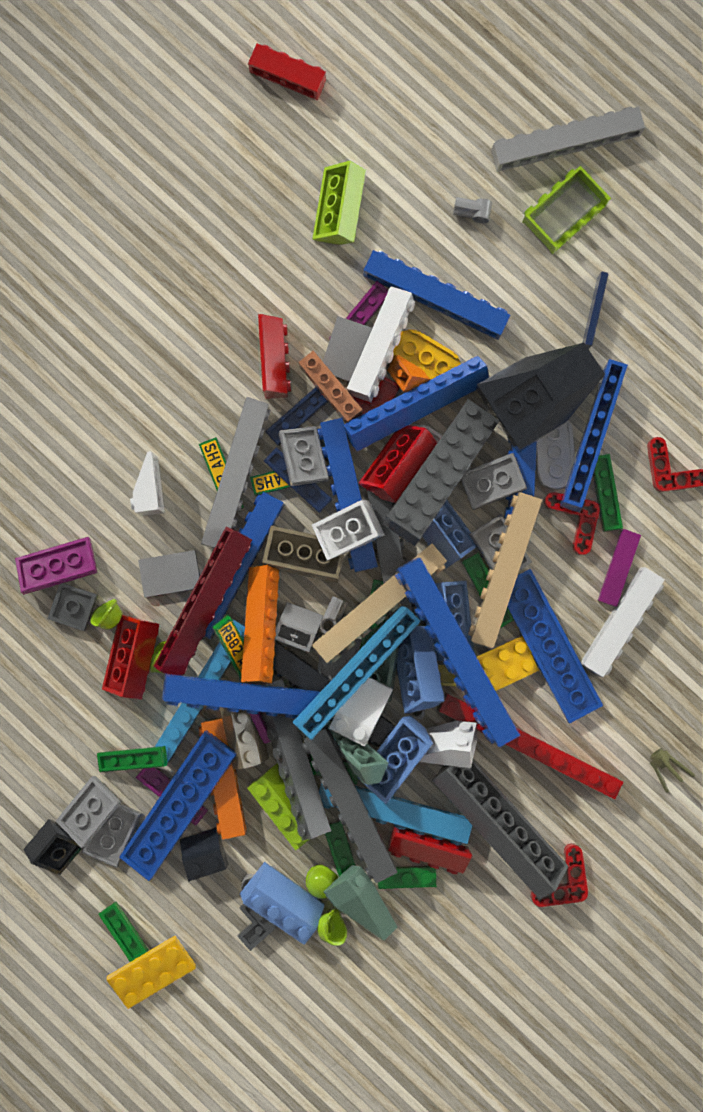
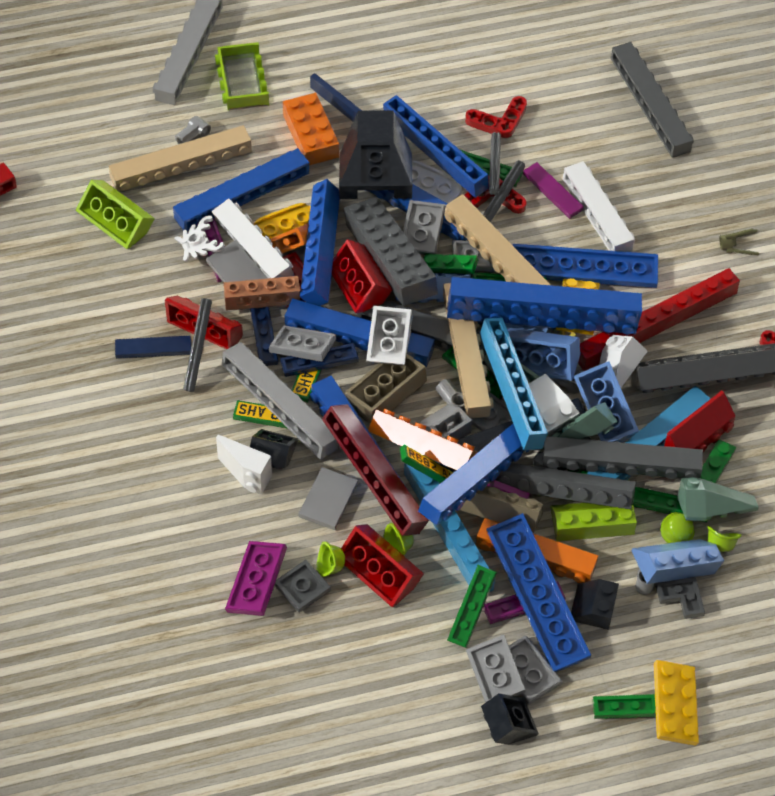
camera: 55 degrees left, 30 degrees down
(186, 497) = (276, 445): none -> black slope
(226, 331) = (152, 346): none -> dark blue tile
(237, 371) = (197, 345): none -> dark grey axle
(352, 294) = (196, 242): none -> white animal
(435, 218) = (180, 158): none -> tan brick
(468, 529) = (451, 263): none -> green plate
(543, 310) = (311, 128): none -> orange brick
(578, 527) = (504, 190): none -> dark grey axle
(611, 500) = (494, 163): none -> dark grey axle

